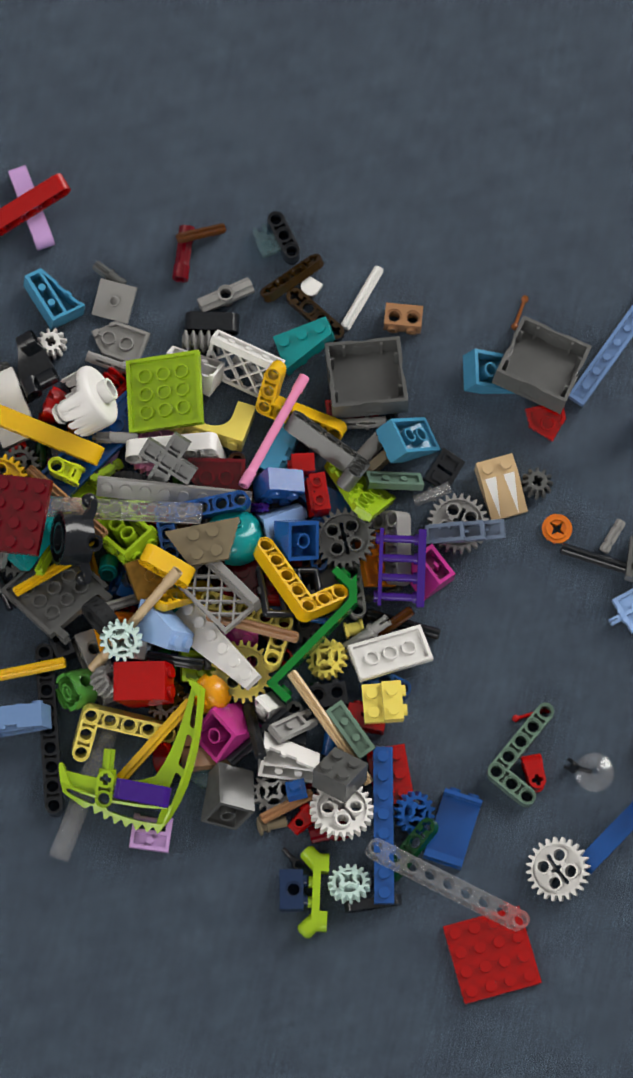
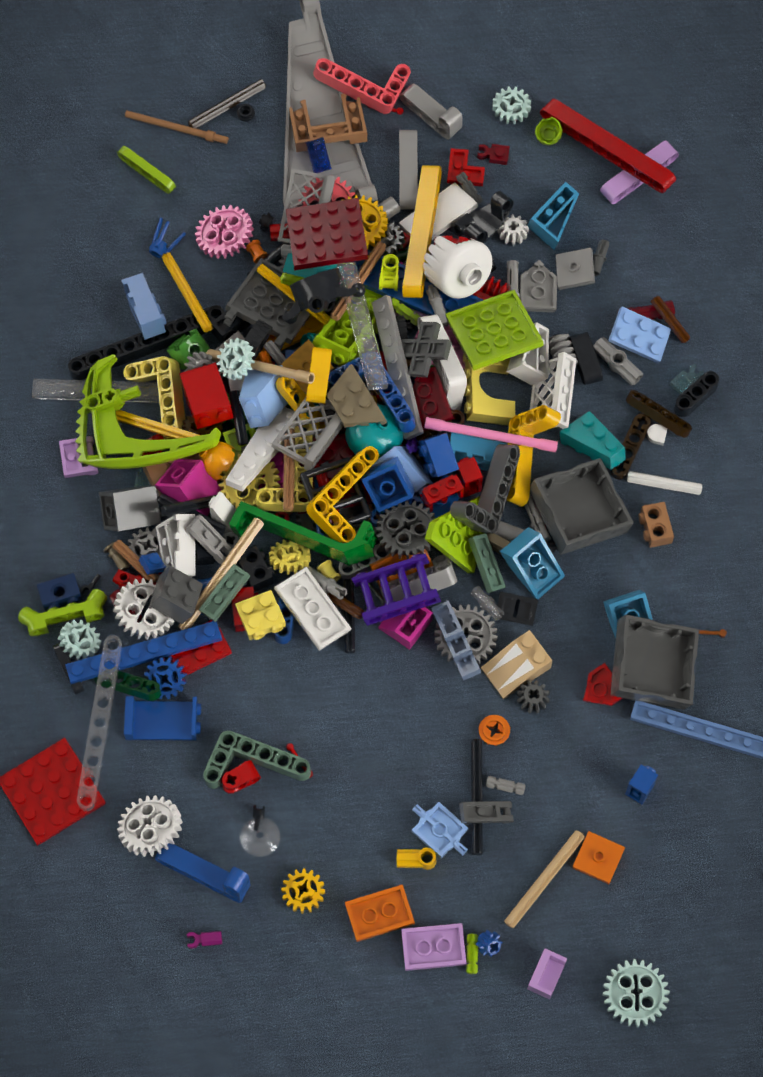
camera: 75 degrees right, 5 degrees down
(142, 792) = (105, 429): dark purple beam -> none
(206, 266) = (639, 334): none -> light blue plate

